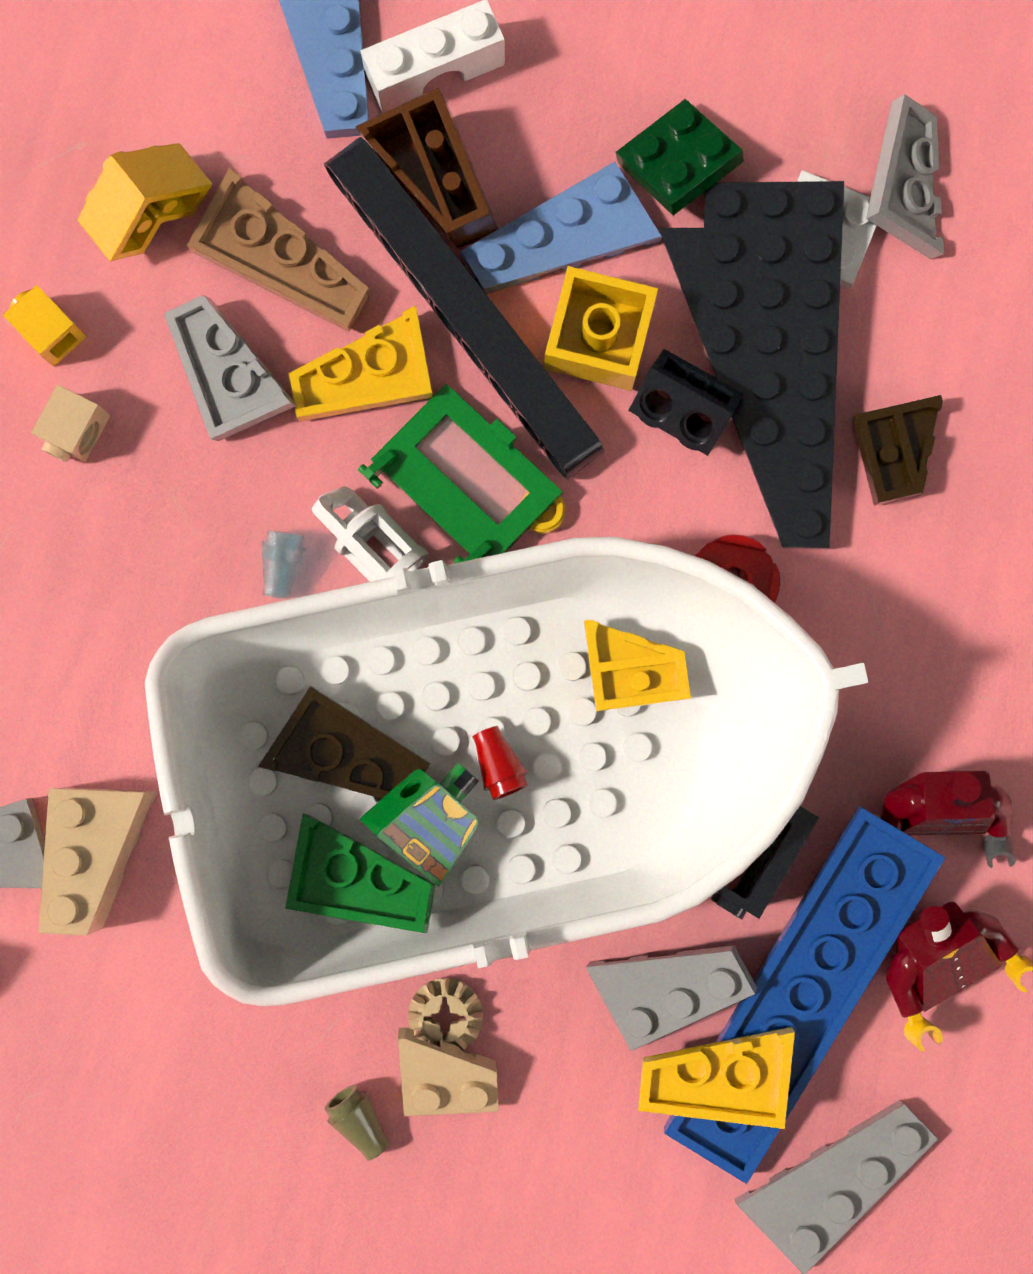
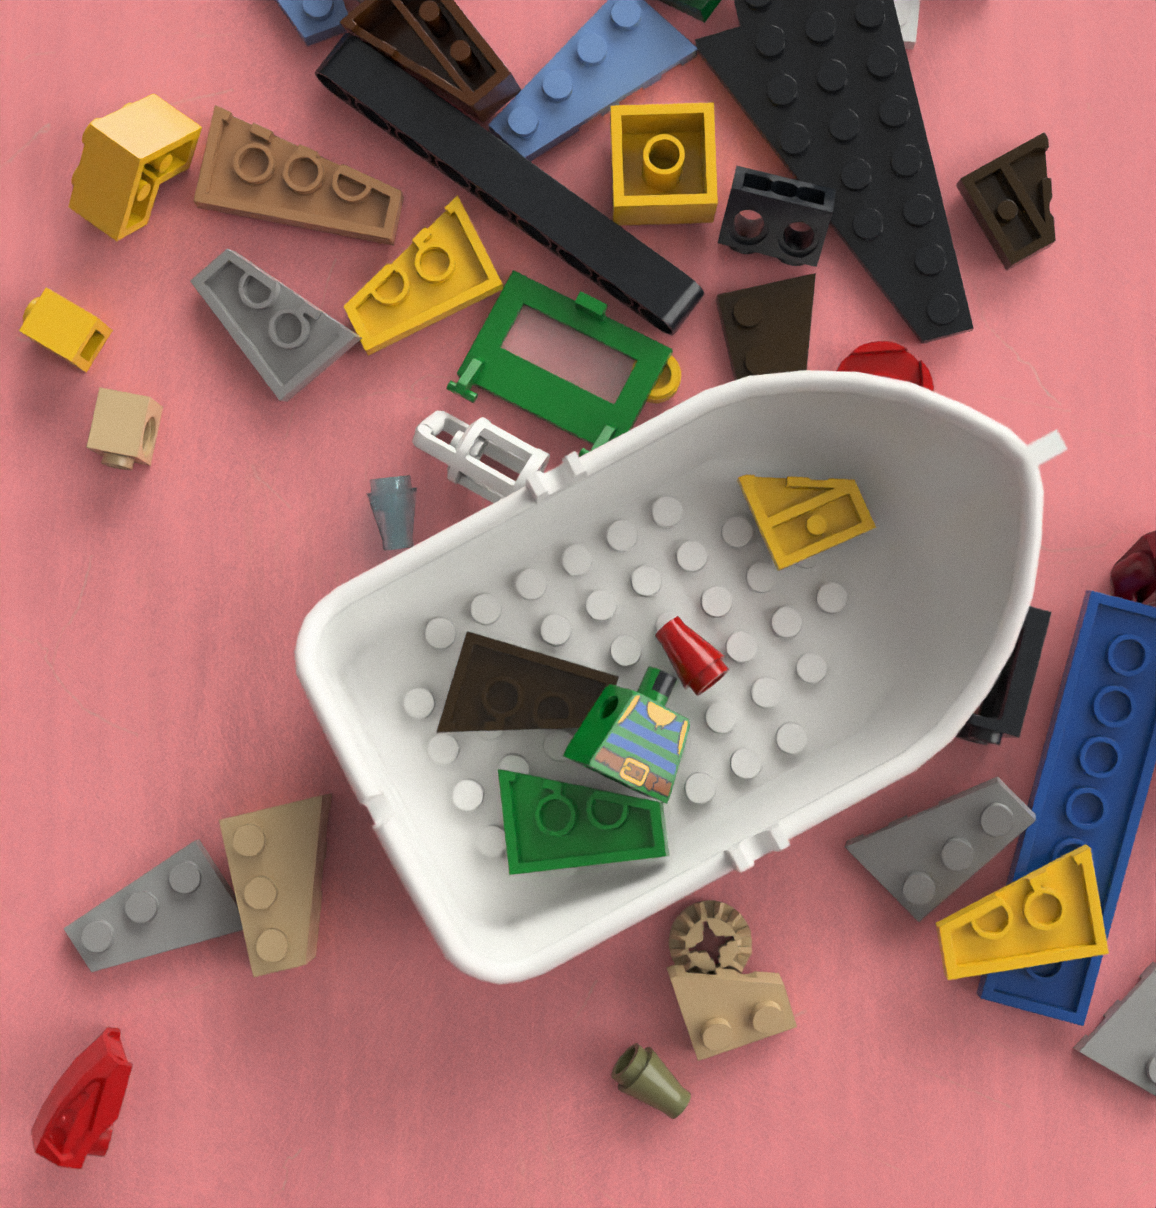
camera: 10 degrees left, 0 degrees up
(652, 497) = (768, 326): none -> dark brown wing

